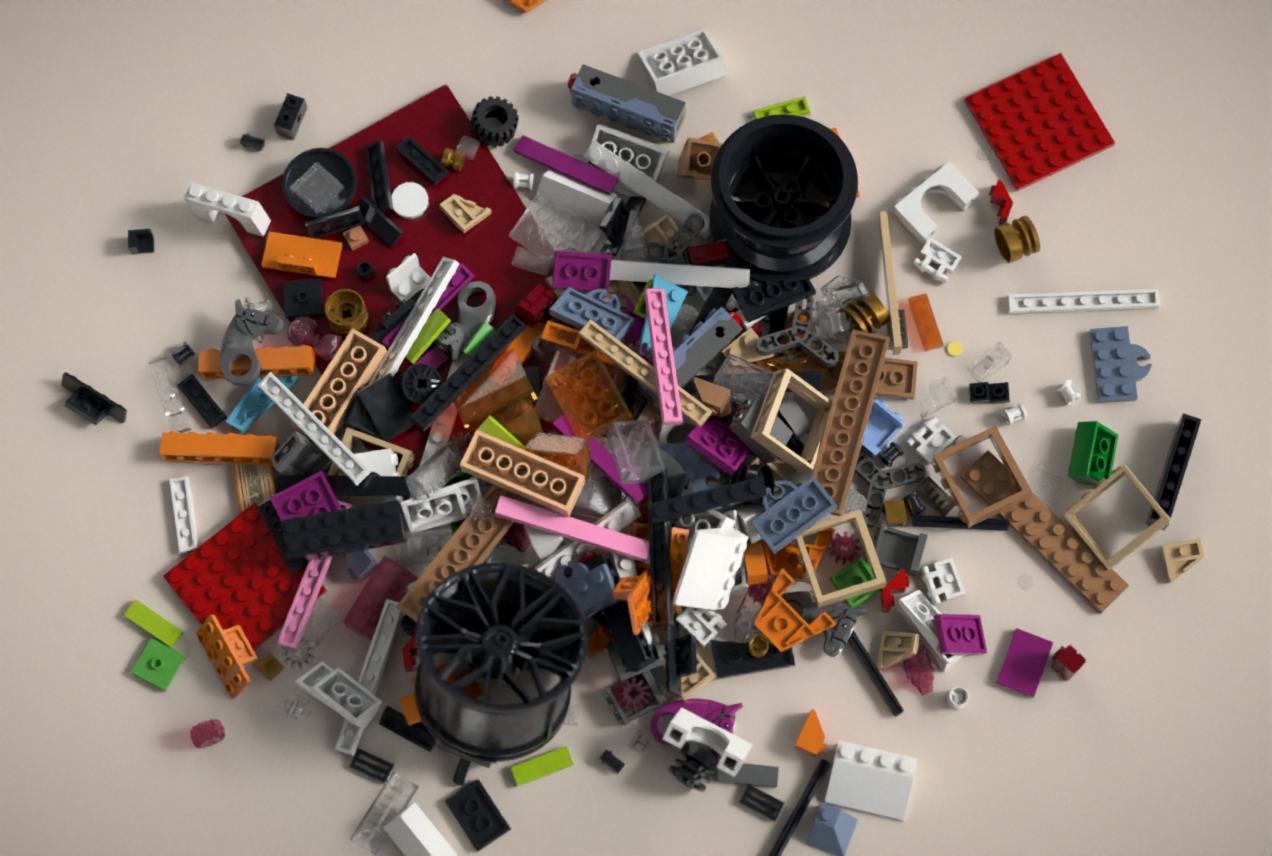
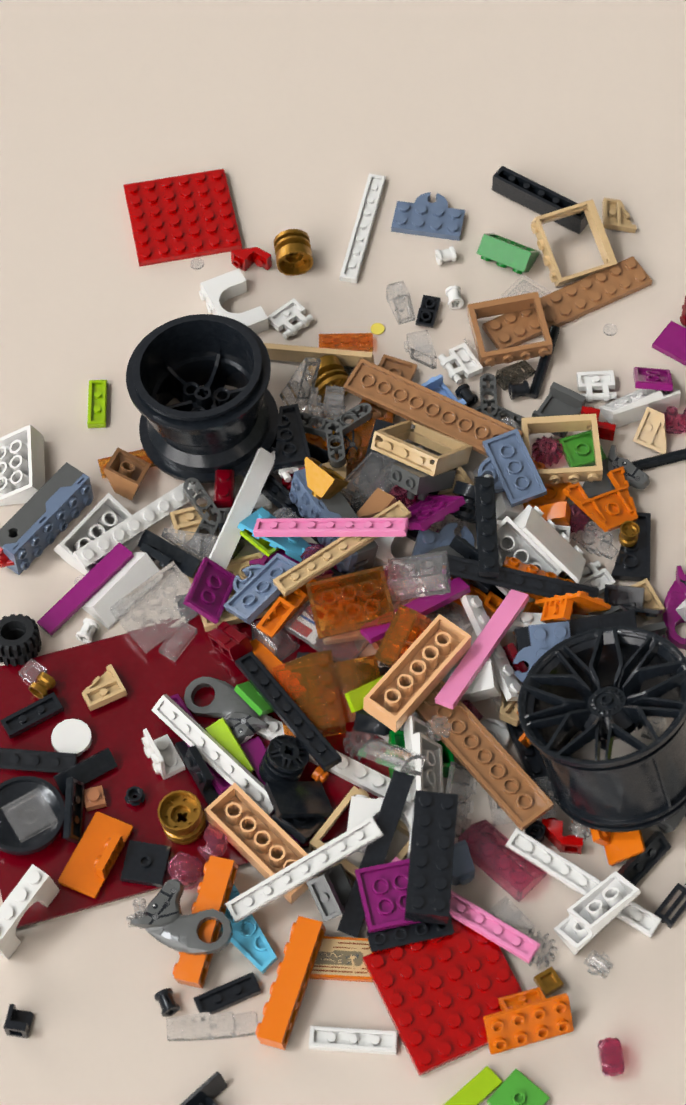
camera: 75 degrees left, 15 degrees down
(715, 334) = (323, 480): none -> slope
(895, 512) = (524, 401): pearl gold panel -> none

